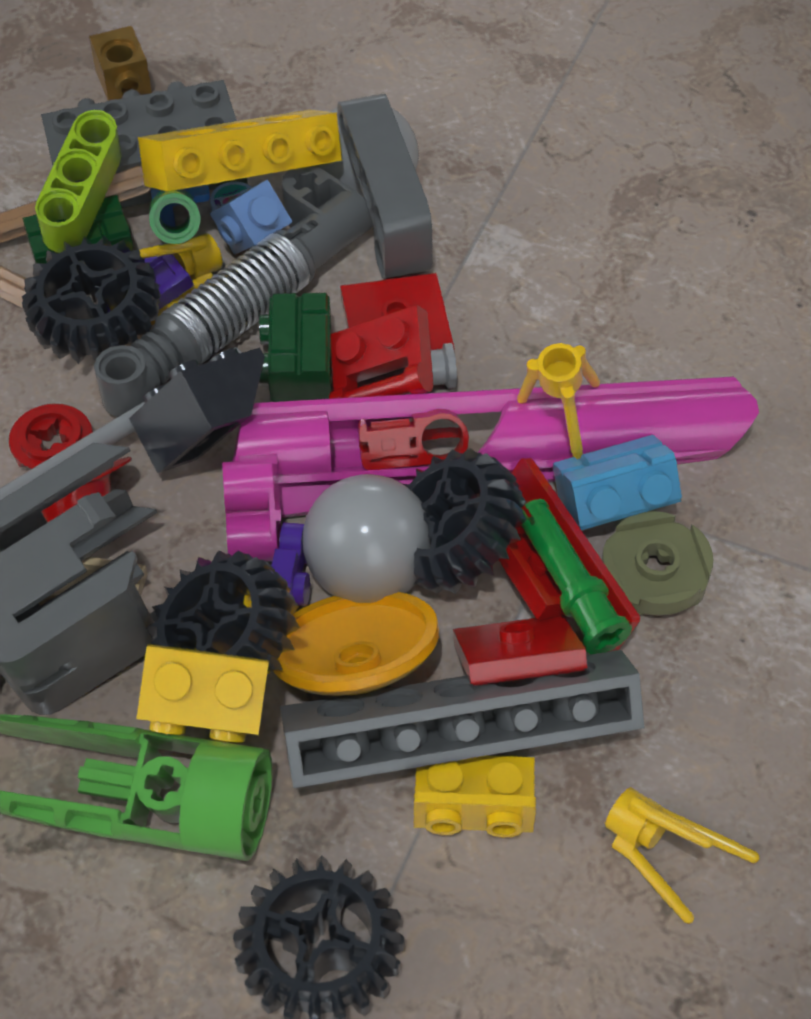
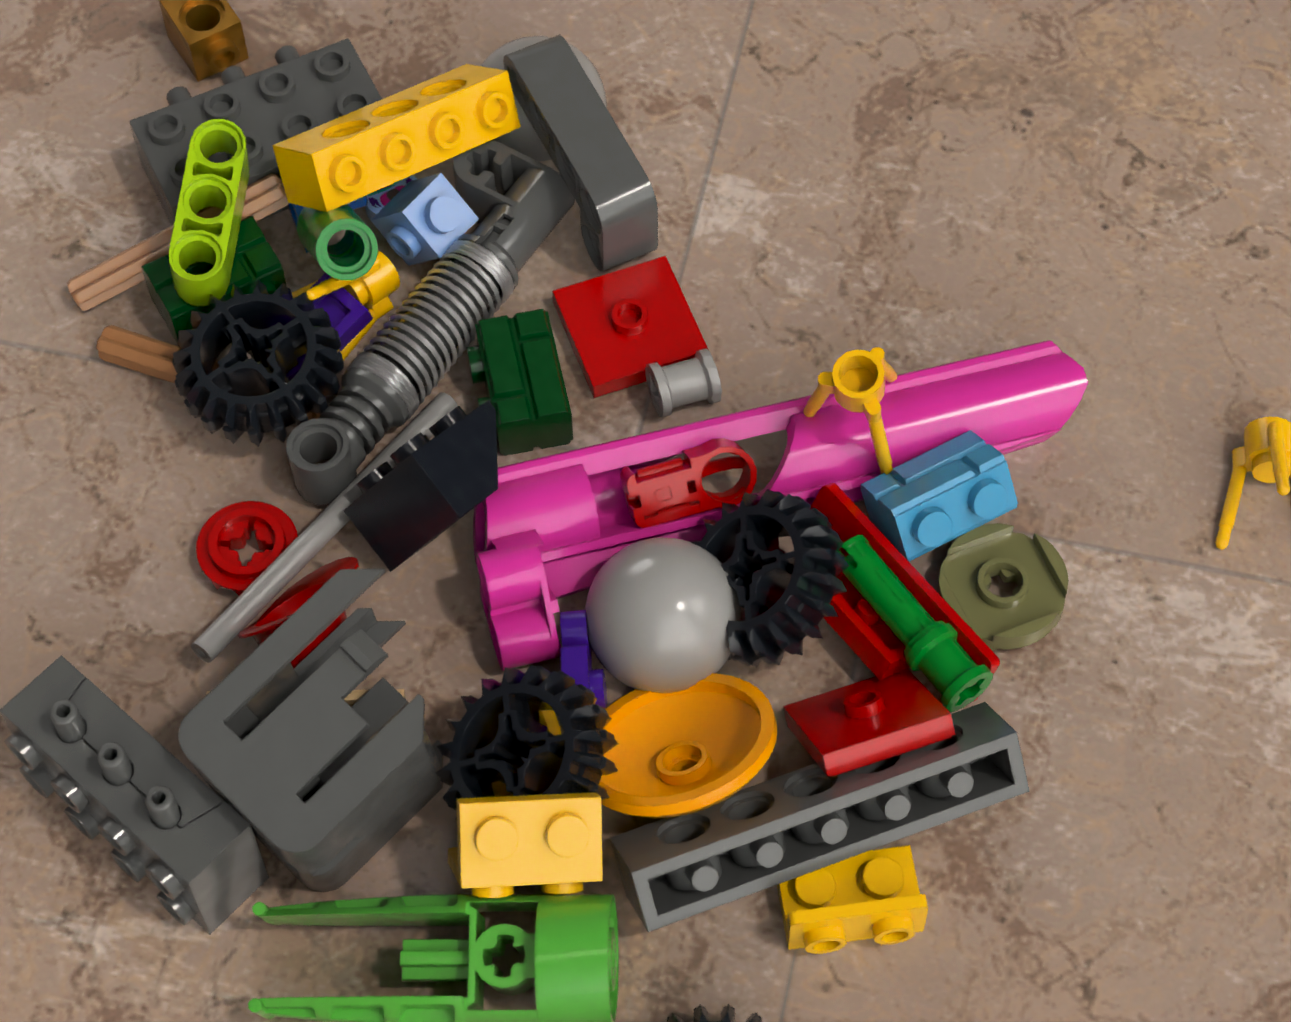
camera: 10 degrees left, 5 degrees up
(379, 348) = (624, 371): red plate -> none
(643, 822) = (1046, 898): yellow plant -> none

